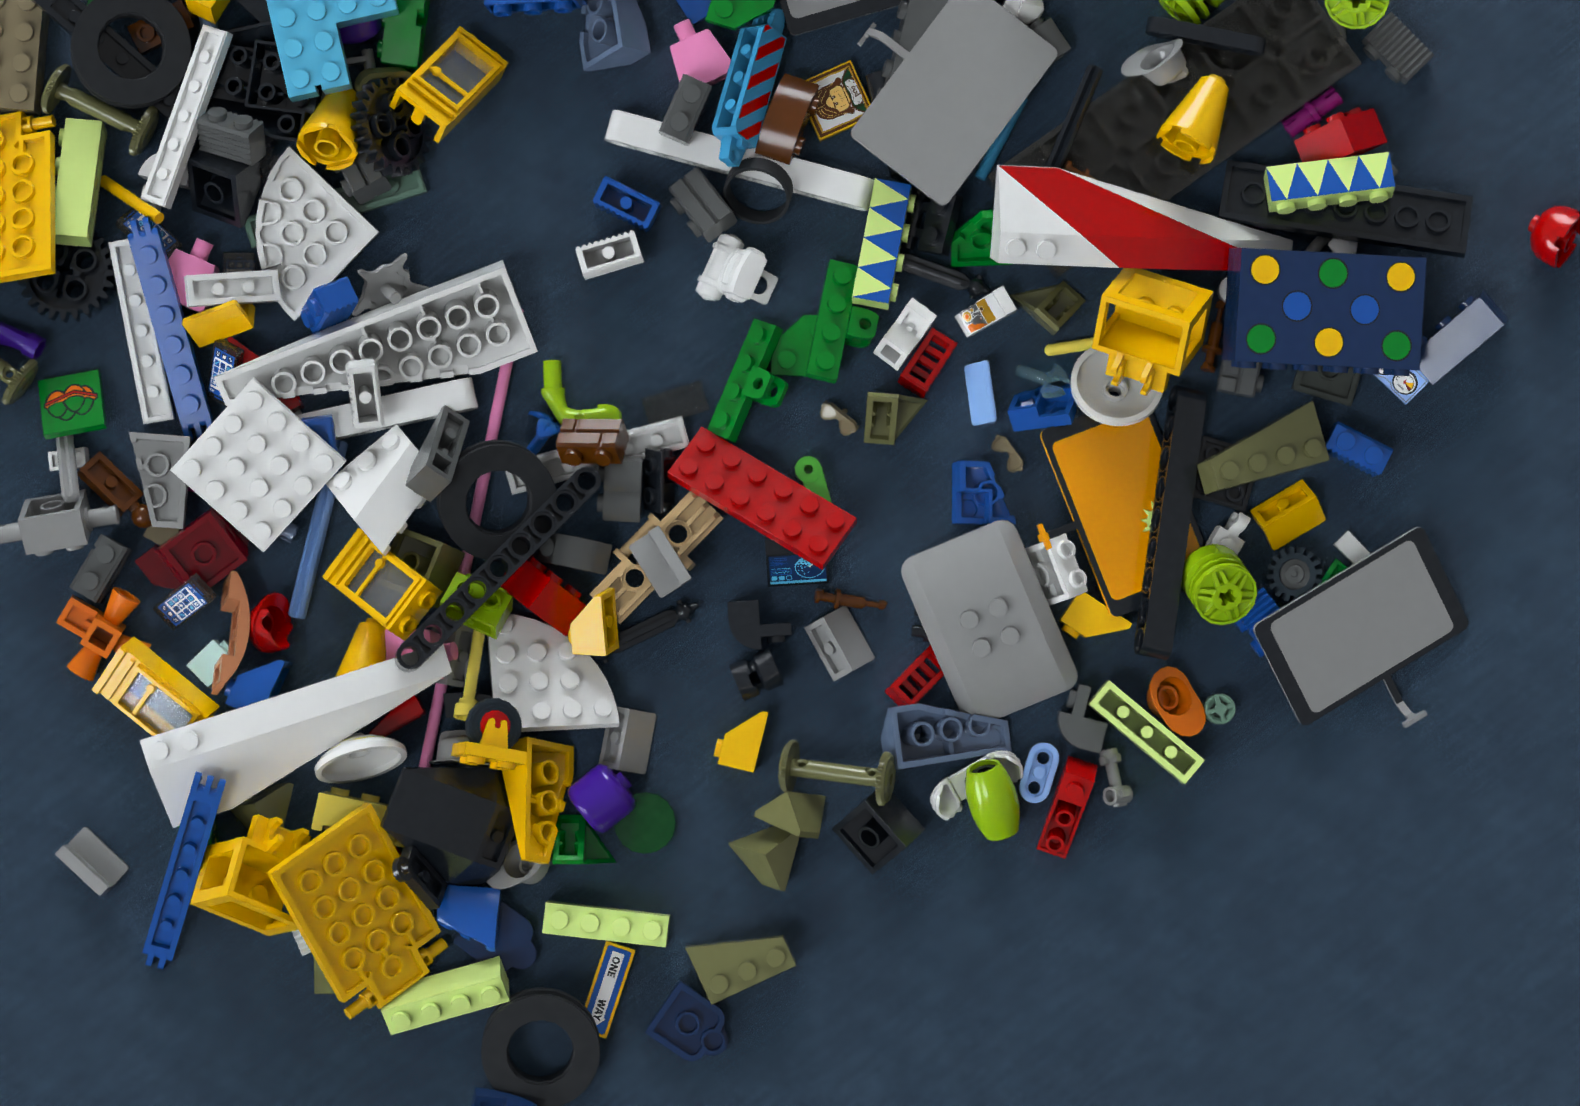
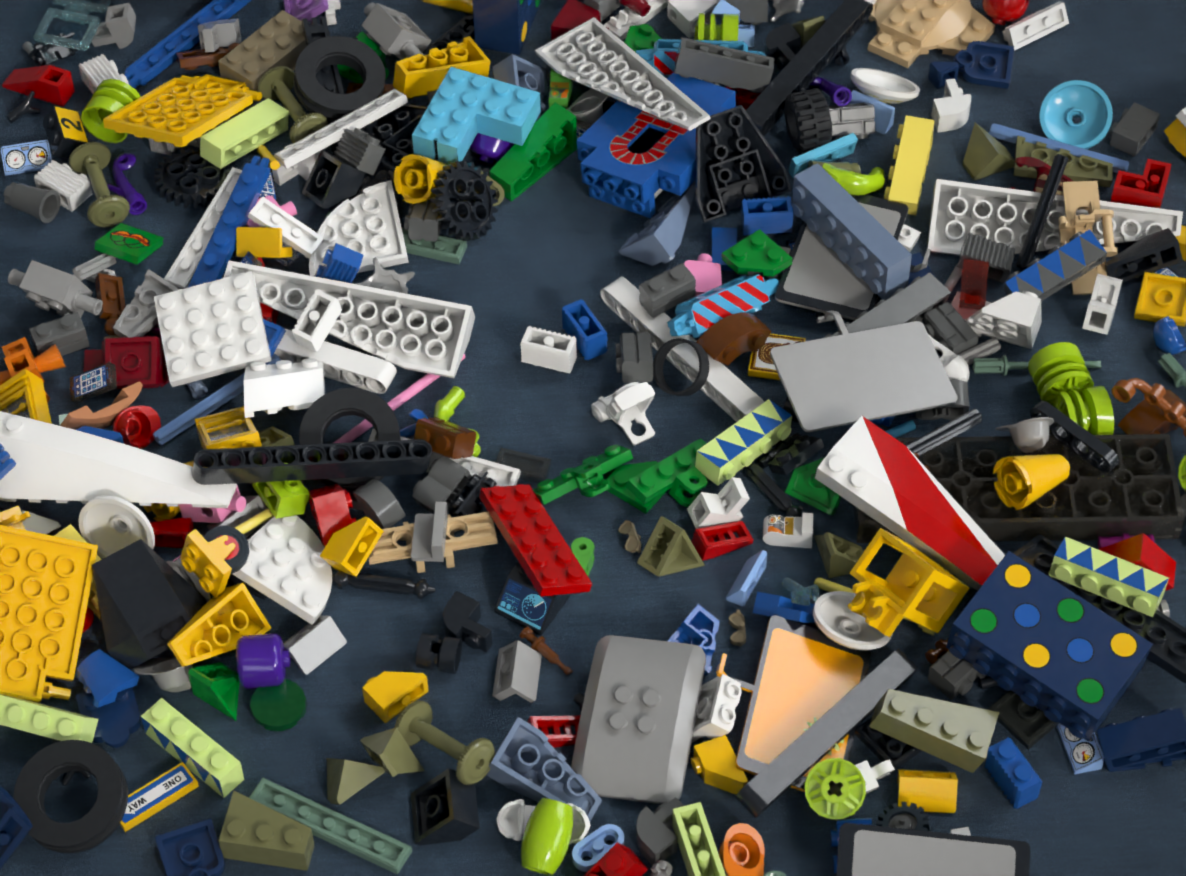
camera: 30 degrees right, 35 degrees down
(420, 877) = (89, 619): black hinge -> none
(438, 455) = (327, 377): dark grey slope -> none
(451, 81) = (523, 199): yellow door -> none
(783, 909) = (334, 826): none -> sand green tile

